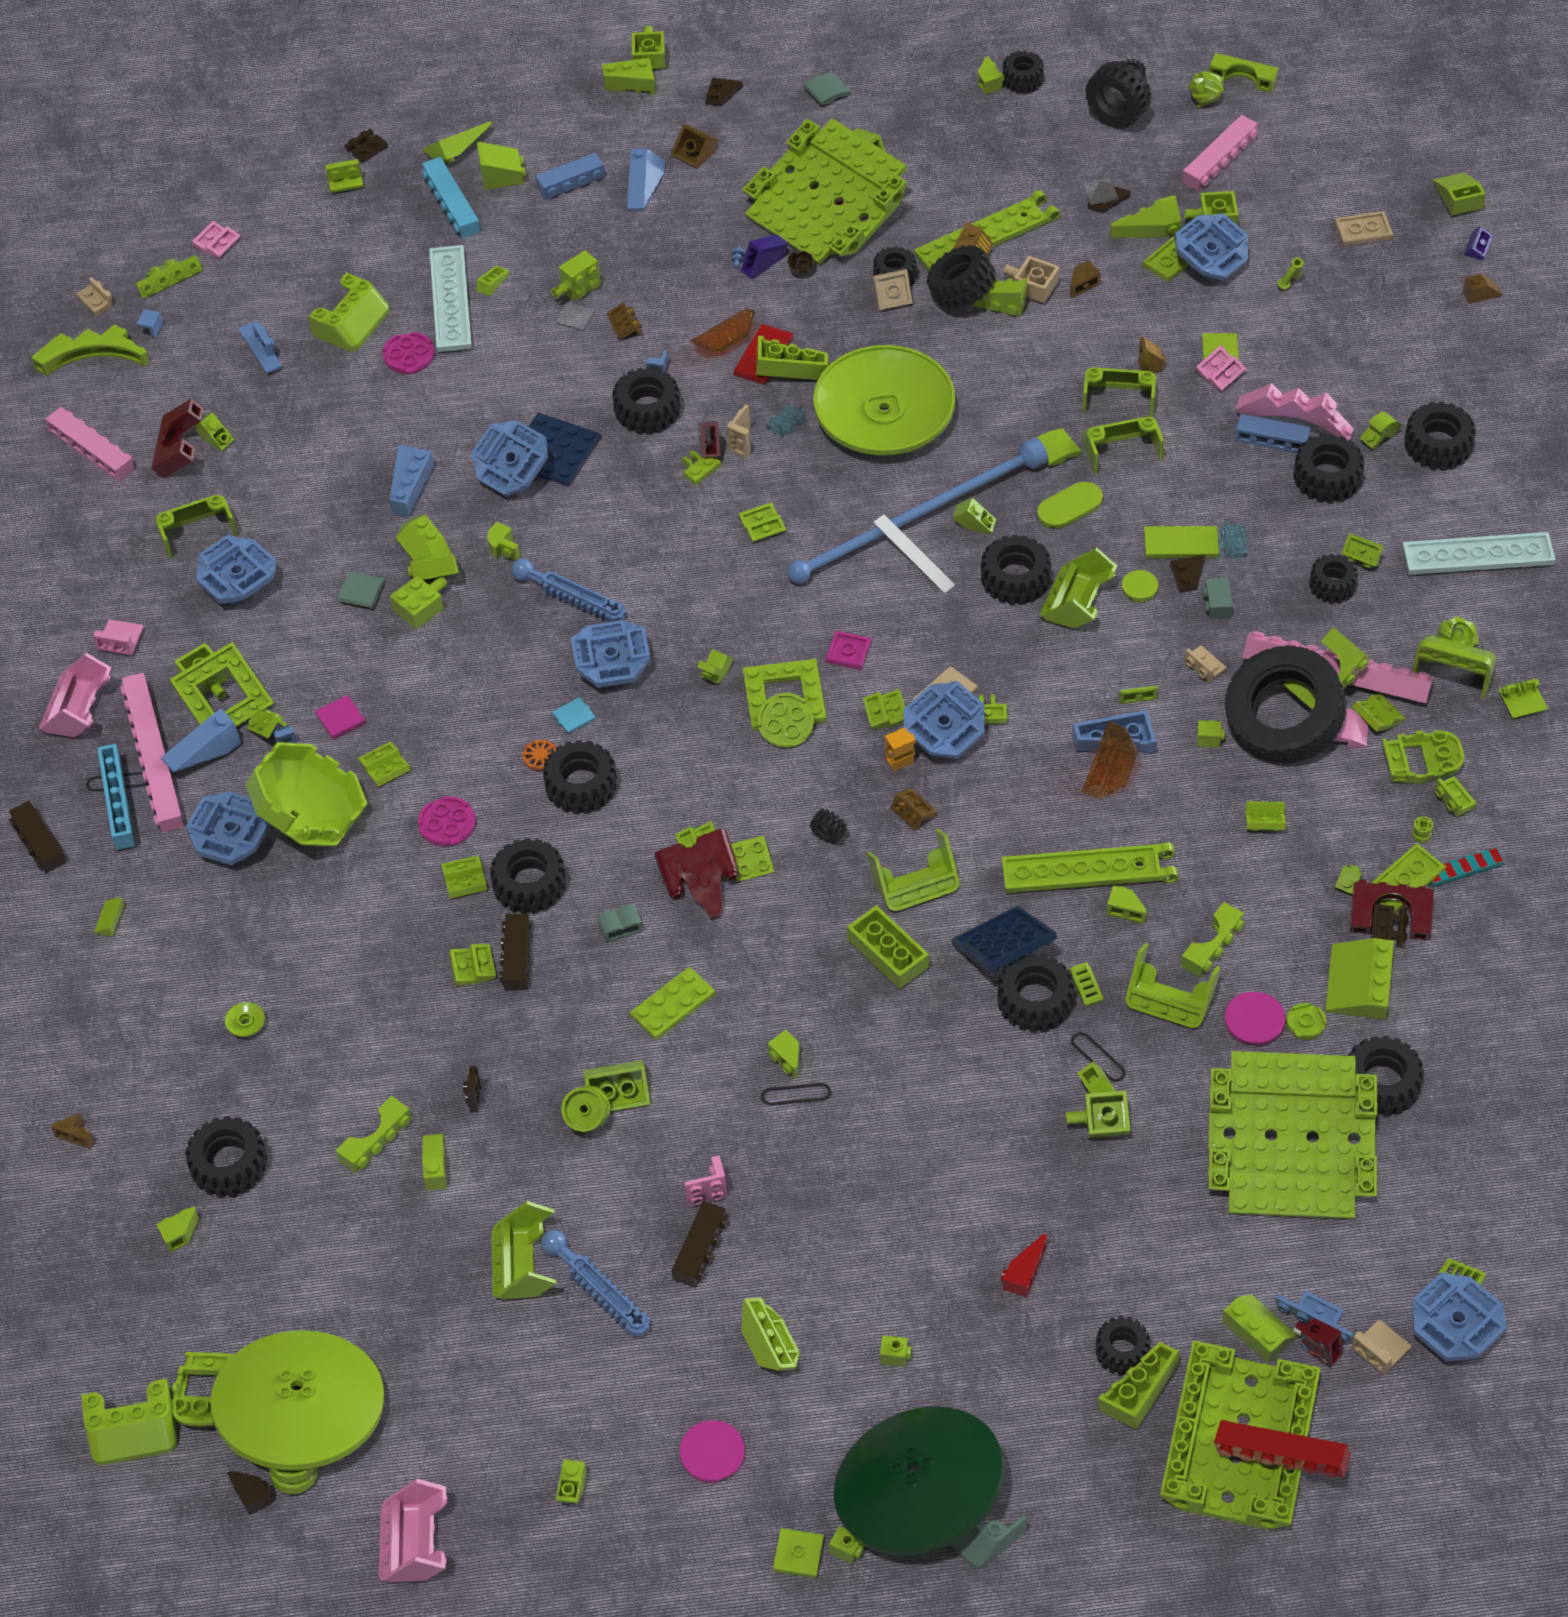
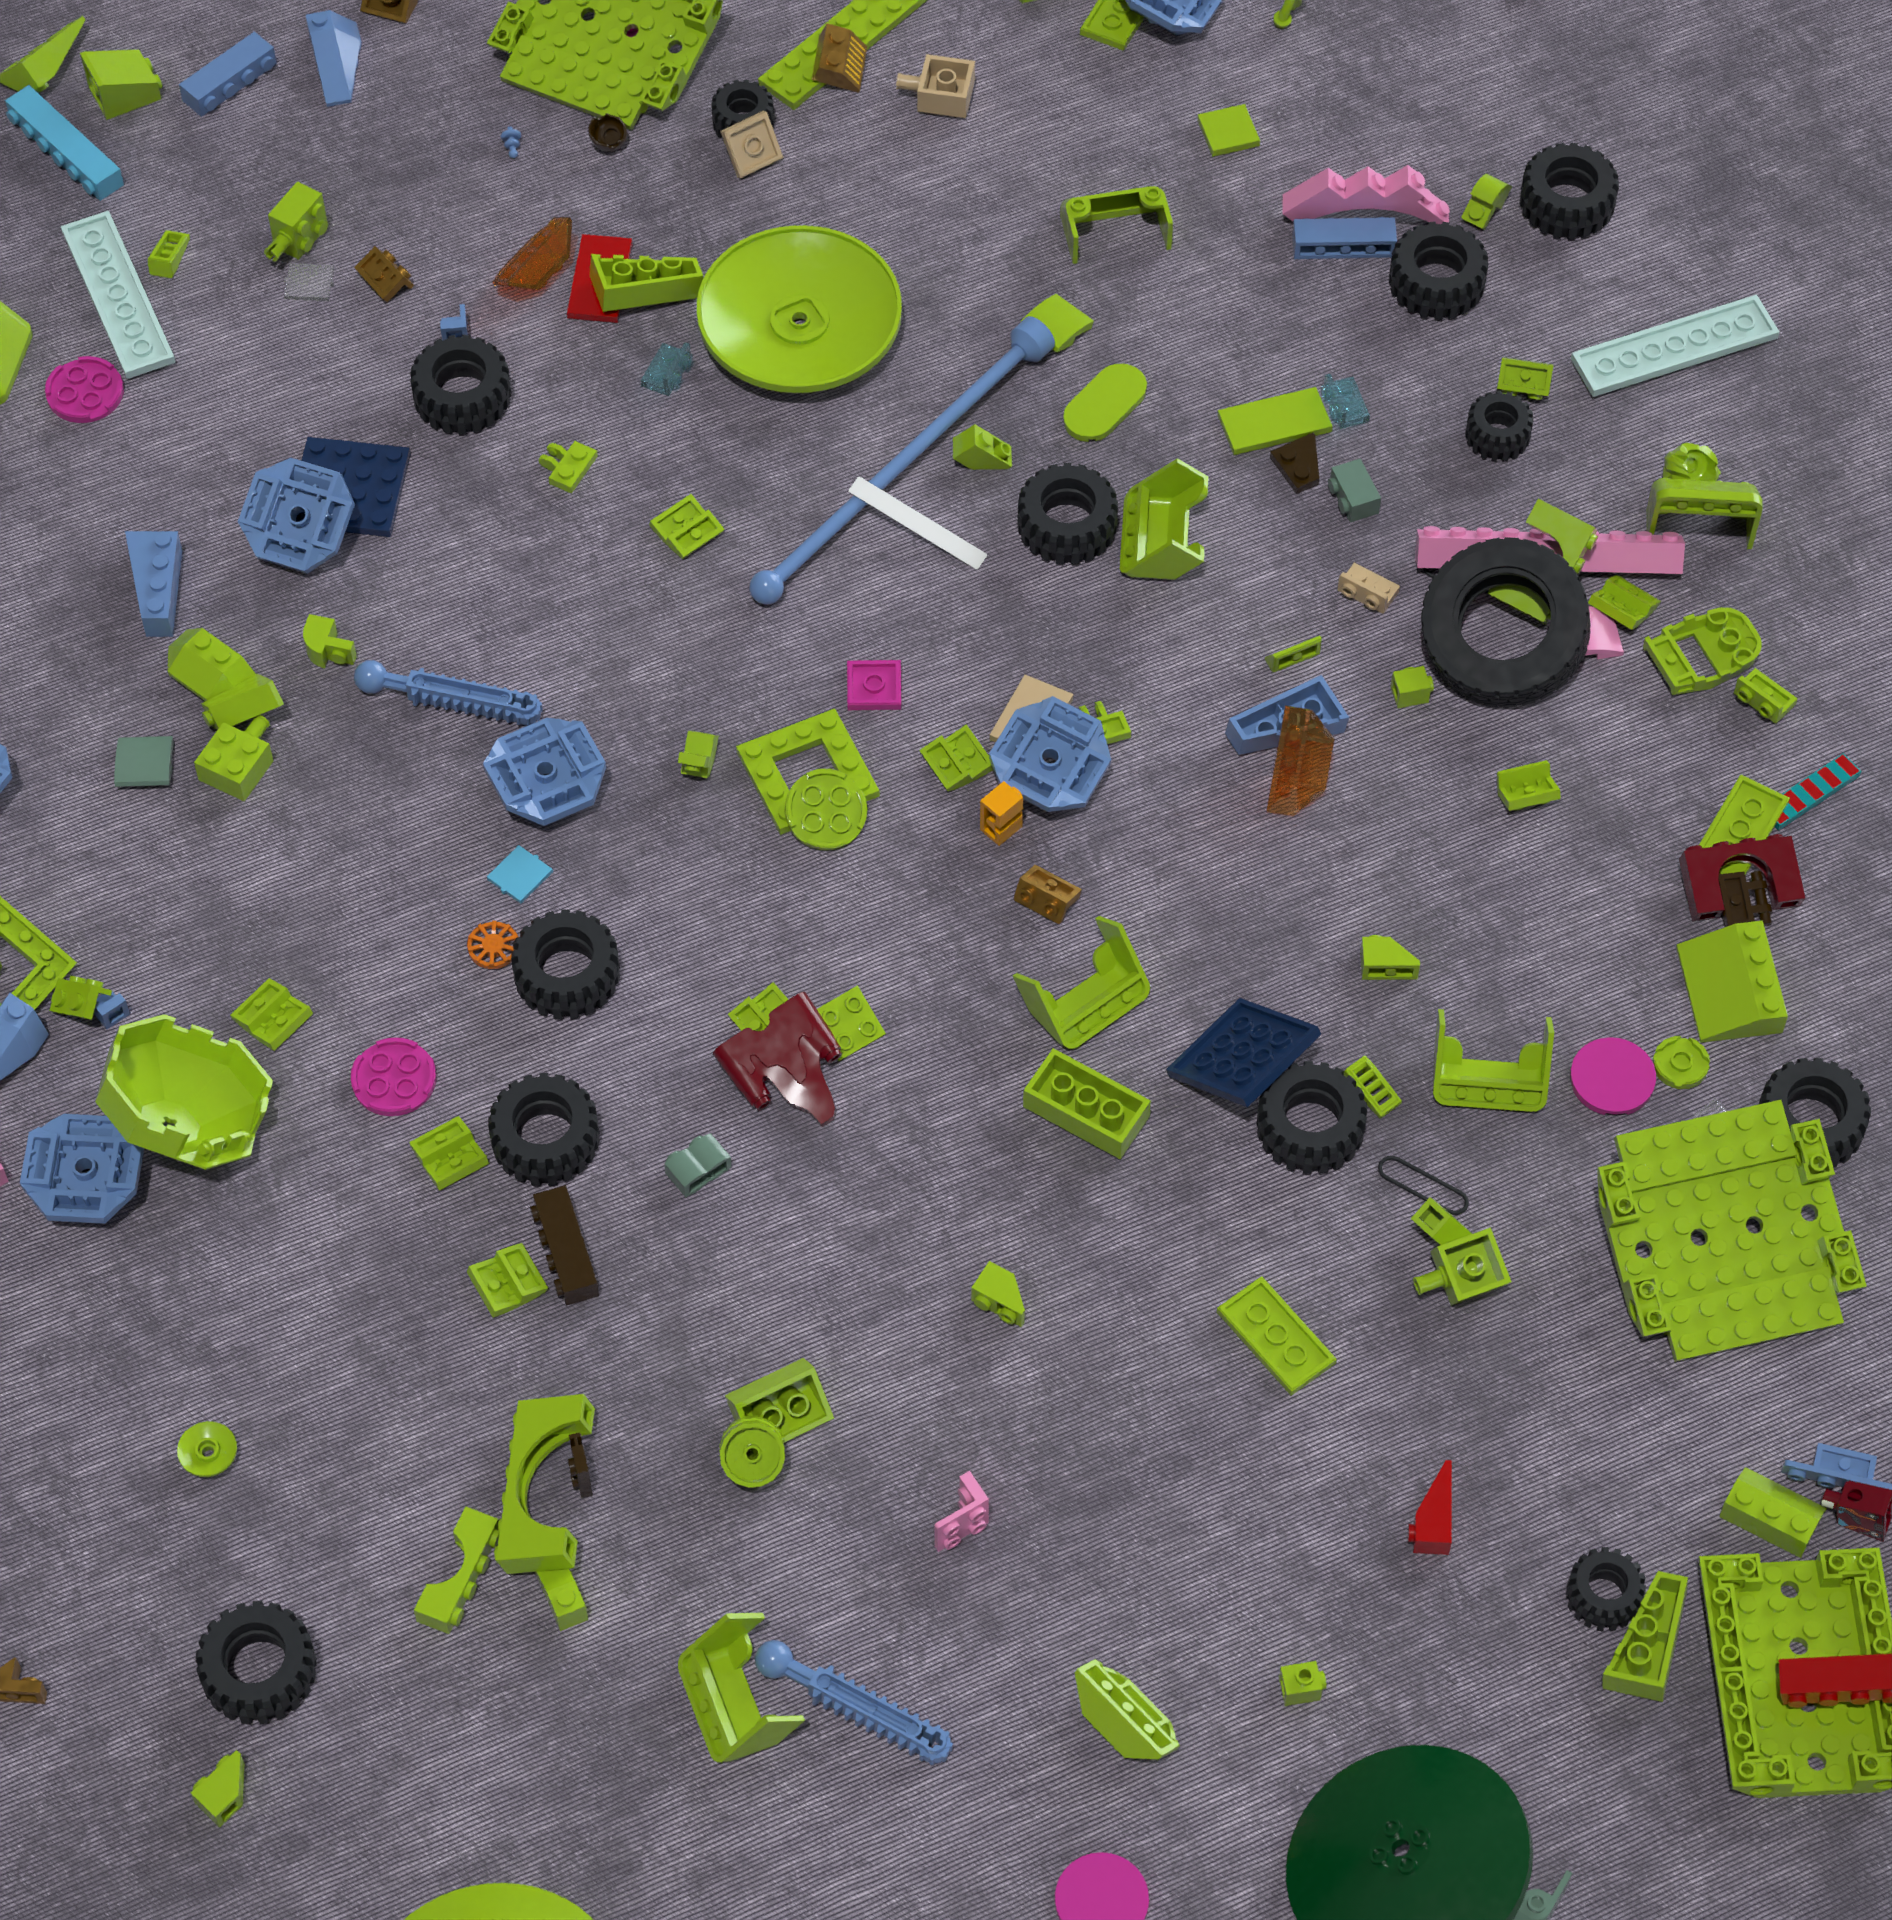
camera: 20 degrees left, 5 degrees up
(340, 717) = (181, 960): dark pink tile -> none
(419, 1126) = (538, 1430): none -> lime arch
(672, 1003) = (812, 1263): lime plate -> none
(699, 1244) = (978, 1604): dark brown brick -> none
(709, 438) = (571, 417): torso -> none
(739, 433) = (612, 408): tan bracket -> none
(763, 254) = (549, 132): dark purple slope -> none
(796, 1101) = (1068, 1325): black piece -> none
(828, 826) = (942, 949): black tyre -> none
(961, 277) = (830, 91): black tyre -> none
(962, 1127) = (1276, 1335): none -> lime tile
(1005, 297) = (904, 120): lime wedge -> none
(1084, 278) = (1009, 70): pearl gold slope -> none
(1088, 868) = (1314, 920): lime hinge -> none
(1121, 431) = (1112, 291): lime windscreen -> none
(1139, 585) = (1241, 497): lime tile -> none
(1150, 356) = (1141, 165): pearl gold slope -> none
(1200, 956) = (1511, 1006): lime arch -> none
(1220, 368) = (1240, 160): bright pink slope -> none
(1347, 877) = (1668, 847): lime bracket -> none
(1422, 829) = (1740, 753): lime wheel -> none
(1523, 698) = (1804, 536): lime hinge -> none

